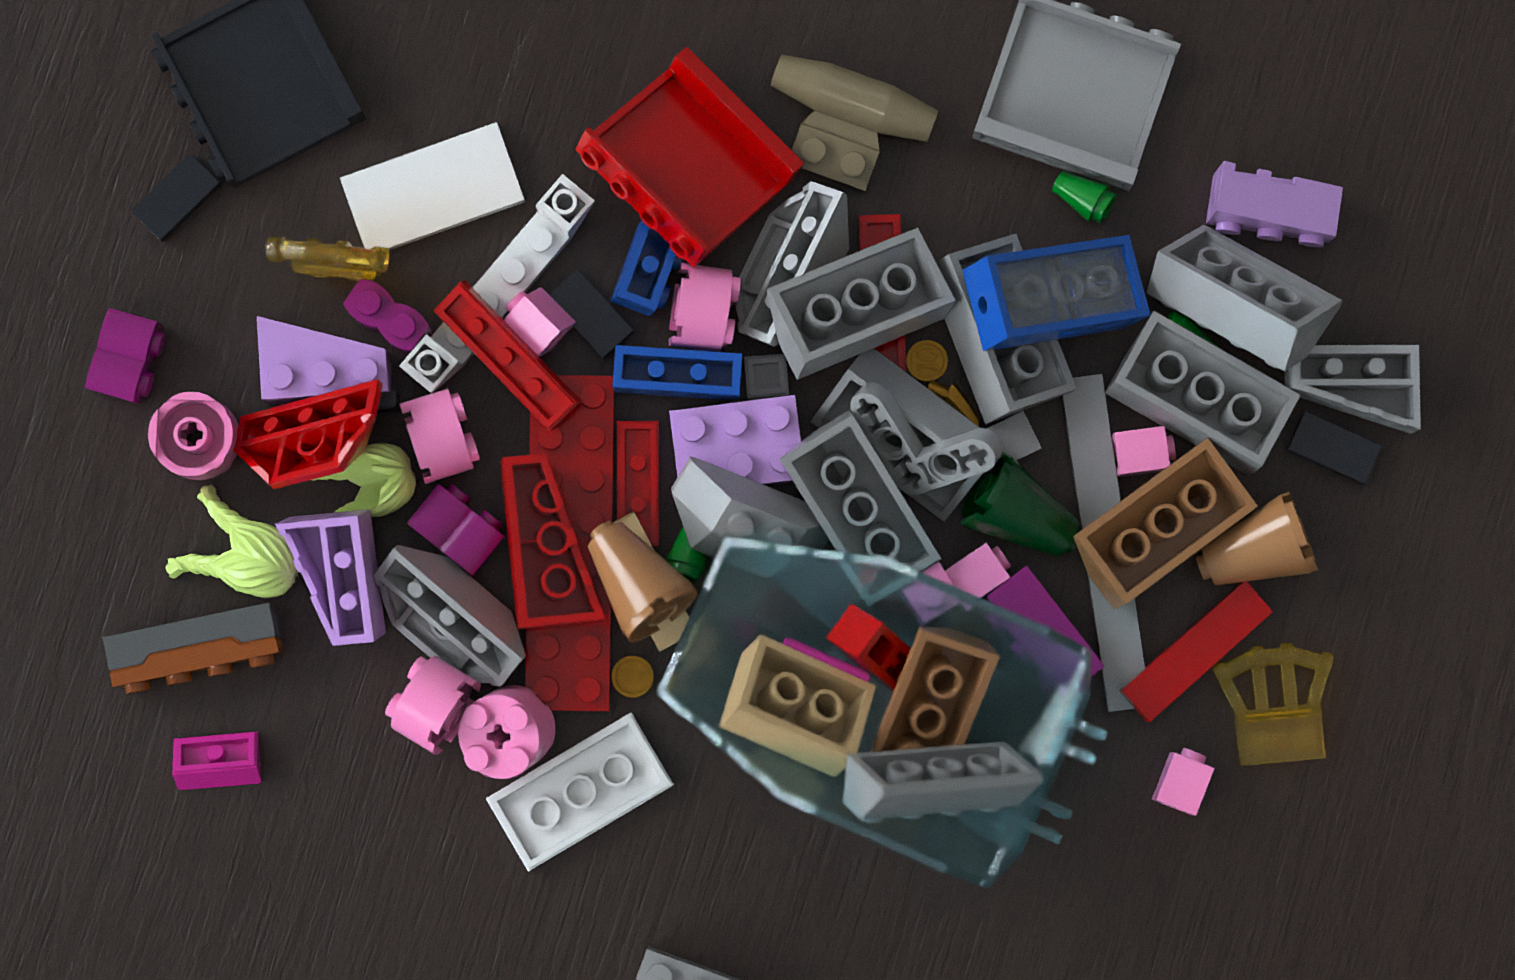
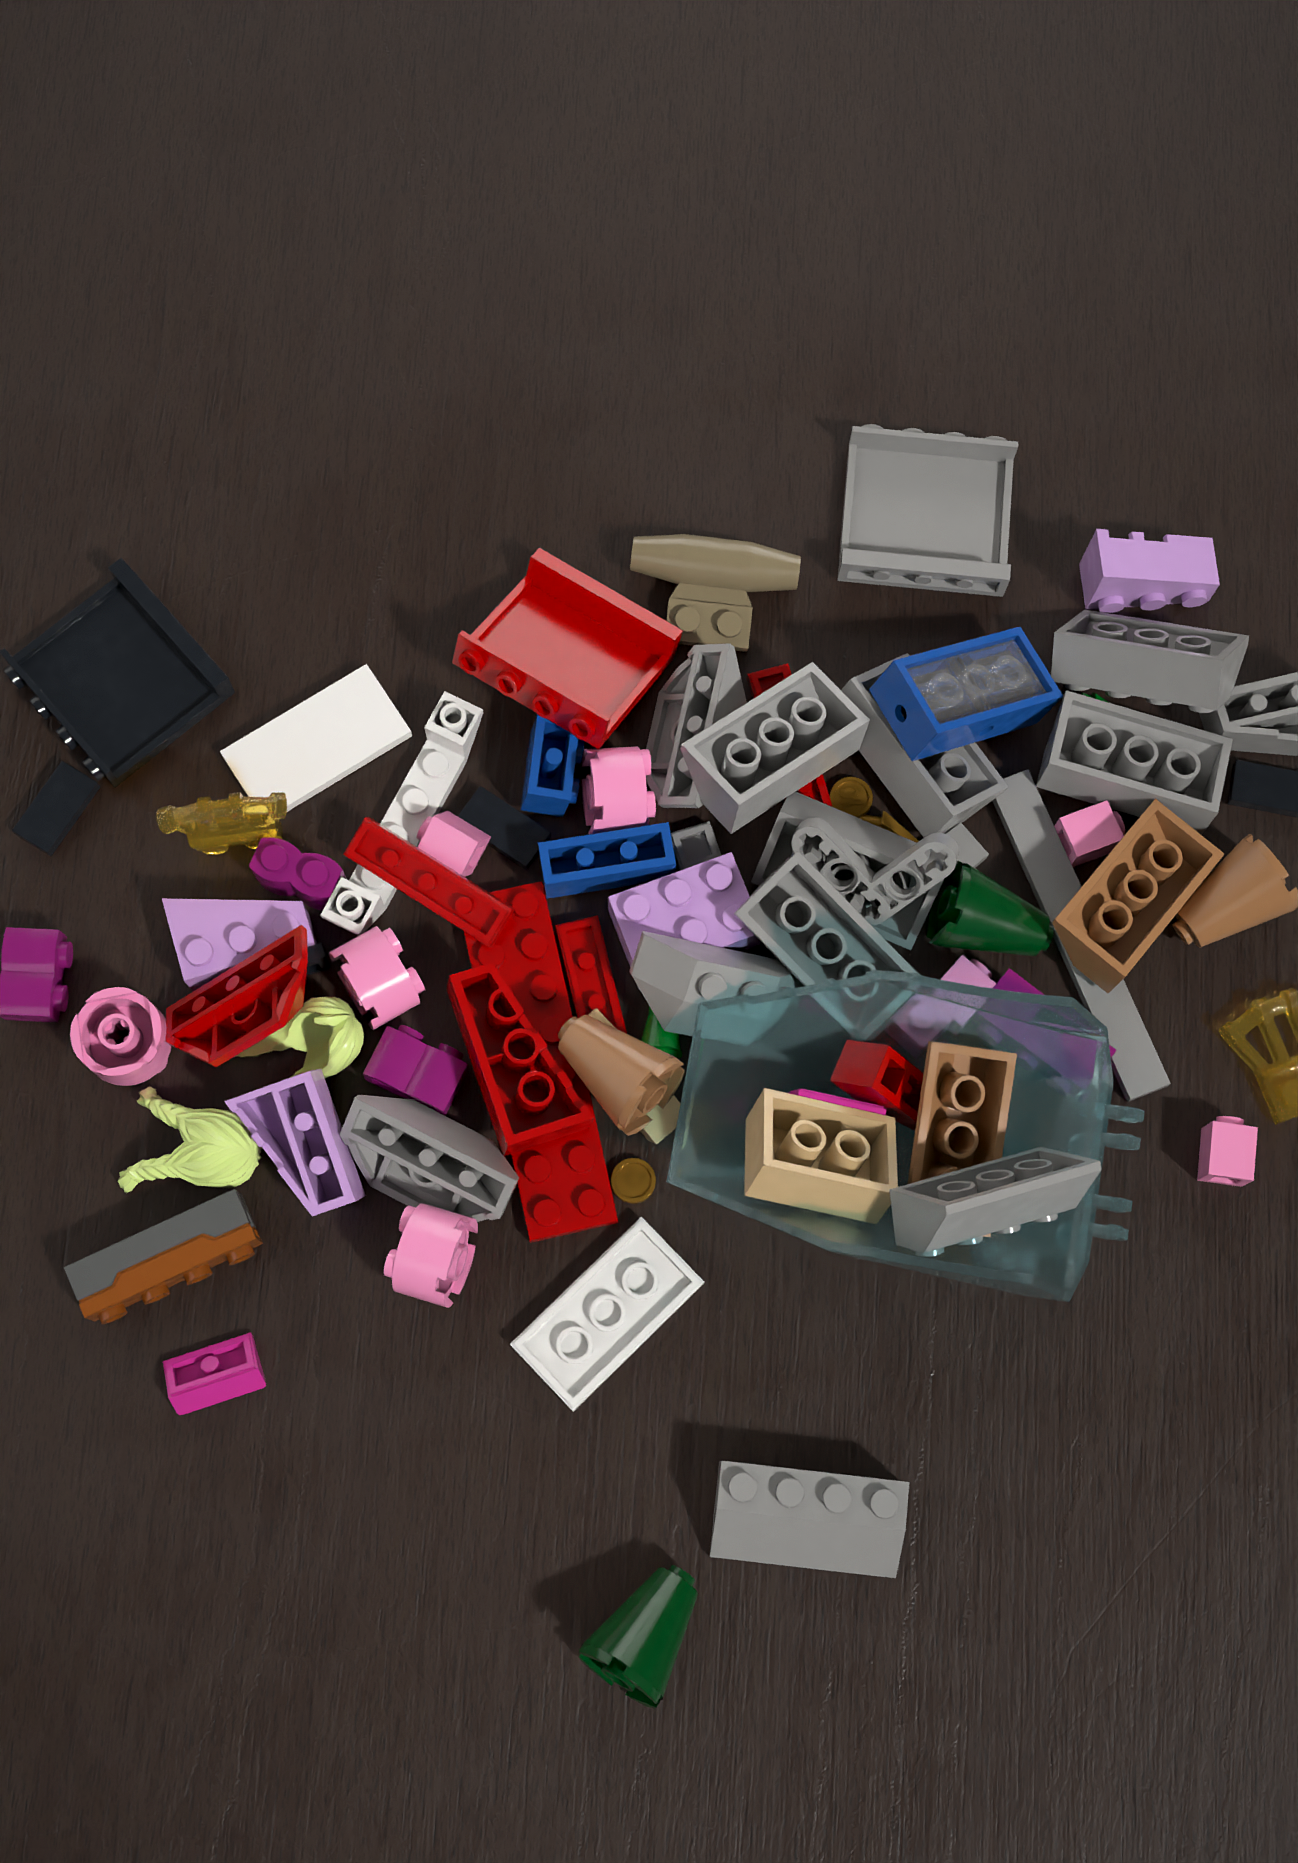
camera: 20 degrees left, 10 degrees down
(486, 729) = (506, 1289): bright pink brick -> none
(1085, 196) = (963, 606): green cone -> none
(1196, 651) = (1200, 1018): red tile -> none

